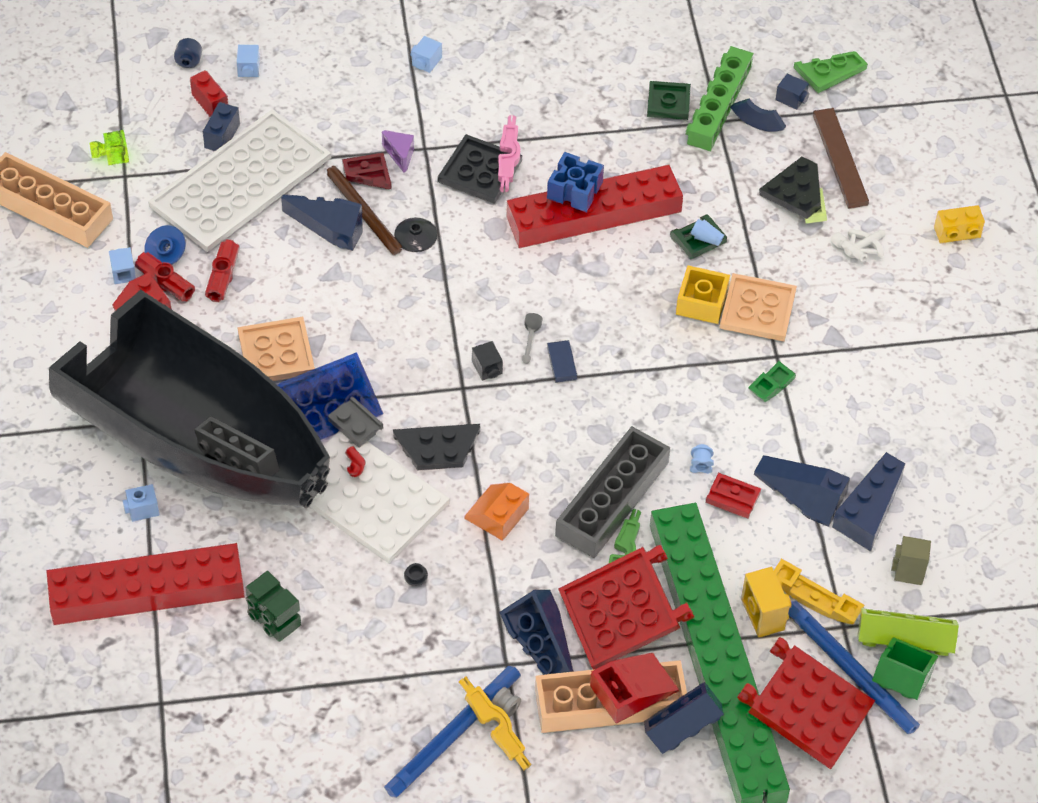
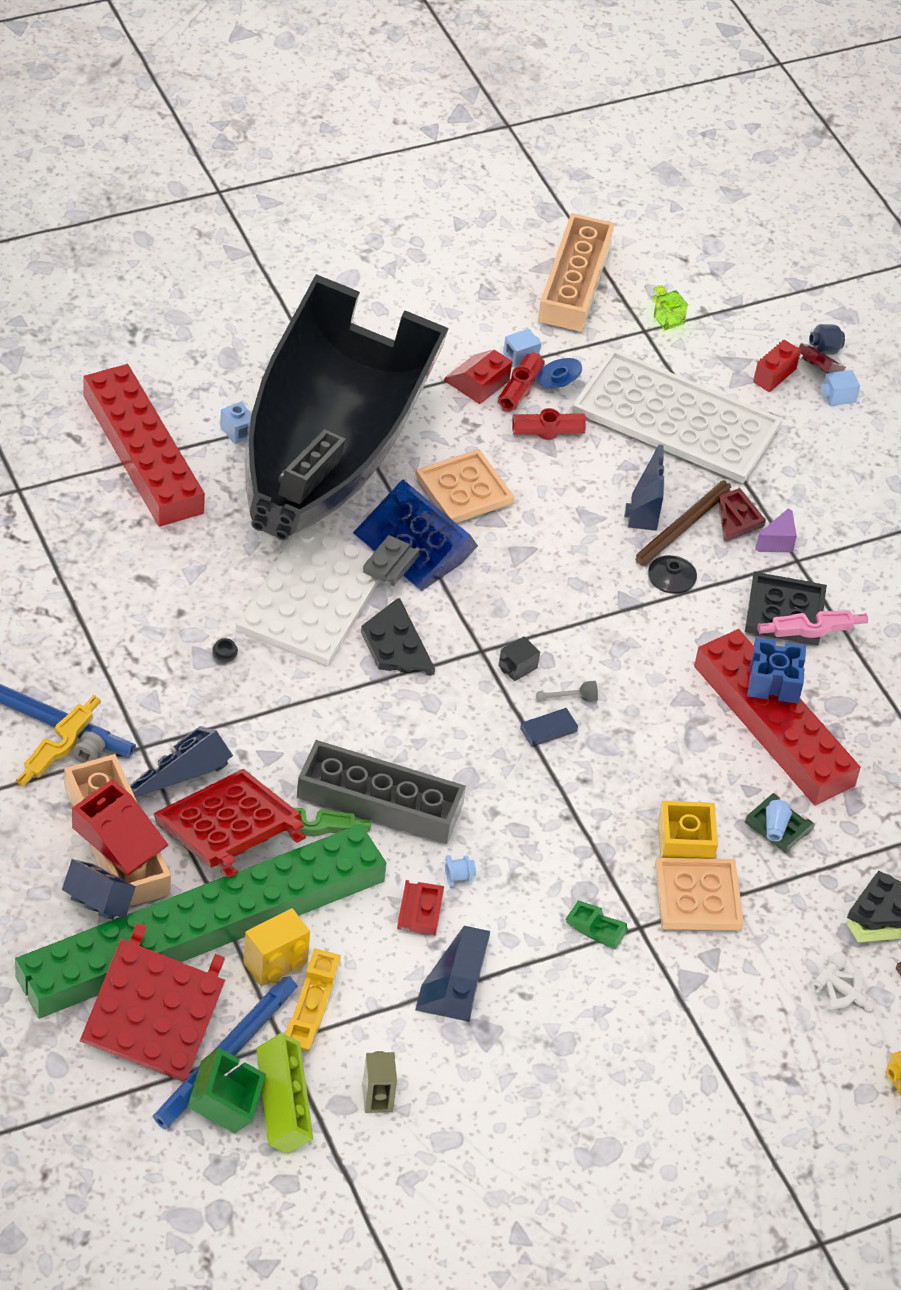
camera: 70 degrees right, 5 degrees down
(215, 62) = (813, 356): none -> dark red wing
(221, 126) = (738, 382): dark blue brick -> none
(273, 606) = (140, 537): dark green brick -> none
(358, 462) = (340, 572): red arm -> none
(499, 509) = (326, 705): orange slope -> none
(867, 506) = (457, 1037): dark blue wedge -> none

